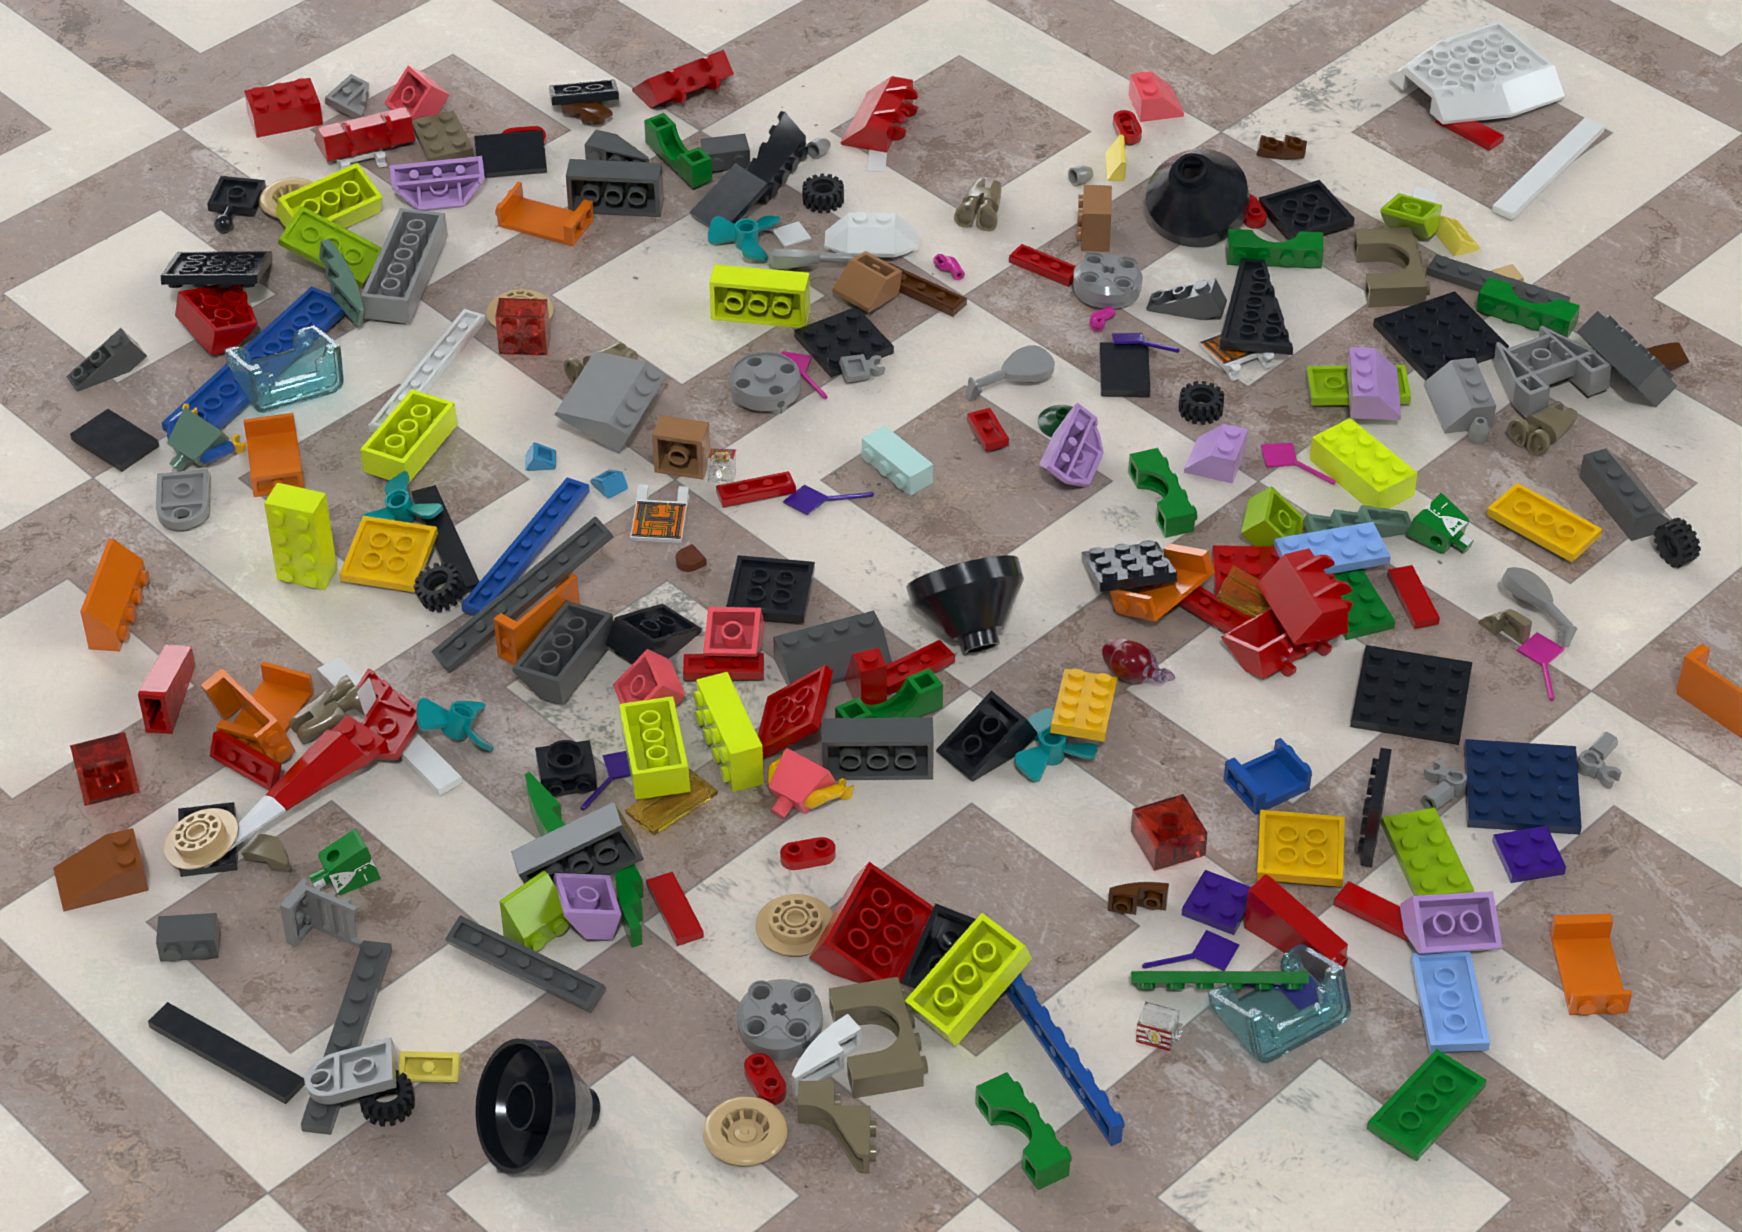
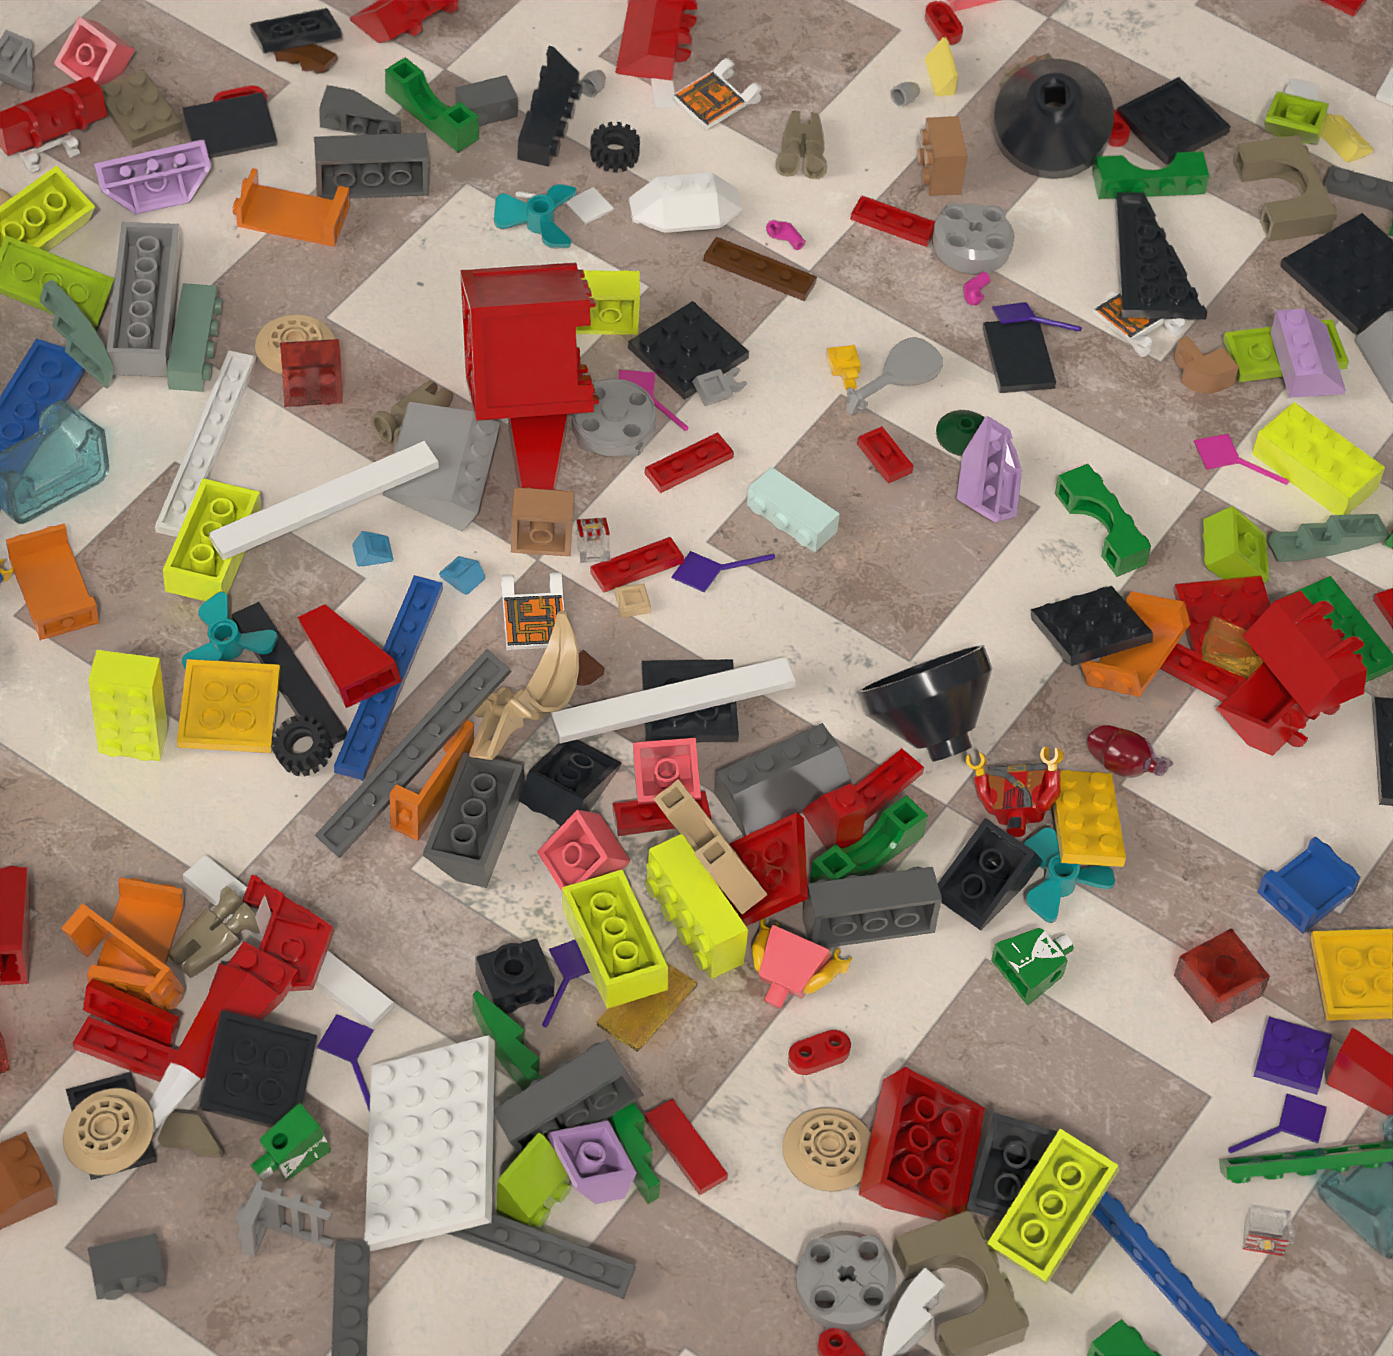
camera: 15 degrees left, 10 degrees up
(230, 784) = (124, 1049): none -> red plate
(330, 804) = (255, 1069): none -> black plate
(416, 802) = (347, 1040): none -> dark purple piece
(437, 297) = (193, 337): none -> sand green brick
(453, 723) = (371, 930): teal piece -> none
(457, 875) = (430, 1144): none -> white plate
(494, 527) = (347, 656): none -> red slope
(503, 411) = (323, 500): none -> white tile
(614, 572) = (545, 693): none -> tan piece
(694, 310) = (524, 340): none -> red container
(697, 392) = (537, 449): none -> red slope
(730, 196) = (510, 165): black tile -> none
(745, 514) = (632, 600): none -> tan tile
(749, 685) = (710, 847): none -> tan arch
(754, 584) = (672, 700): none -> white tile
(790, 258) = (602, 243): light grey piece -> none
(821, 421) = (689, 462): none -> red tile
(868, 282) = (701, 268): medium nougat slope -> none
(919, 165) = (713, 98): none -> flag
(973, 361) = (844, 362): none -> yellow plate
(1008, 806) = (1032, 962): none -> green torso
(1029, 679) = (1018, 792): none -> torso
(1129, 896) = (1194, 1066): reddish brown slope -> none
(1191, 301) = (1073, 256): dark grey slope -> none
(1210, 396) = (1119, 381): black tyre -> none
(1218, 453) = (1152, 459): lavender slope -> none
(1283, 394) = (1204, 372): none -> medium nougat brick
(1288, 149) = (1129, 36): reddish brown slope -> none
(1348, 546) = (1321, 574): light blue plate -> none

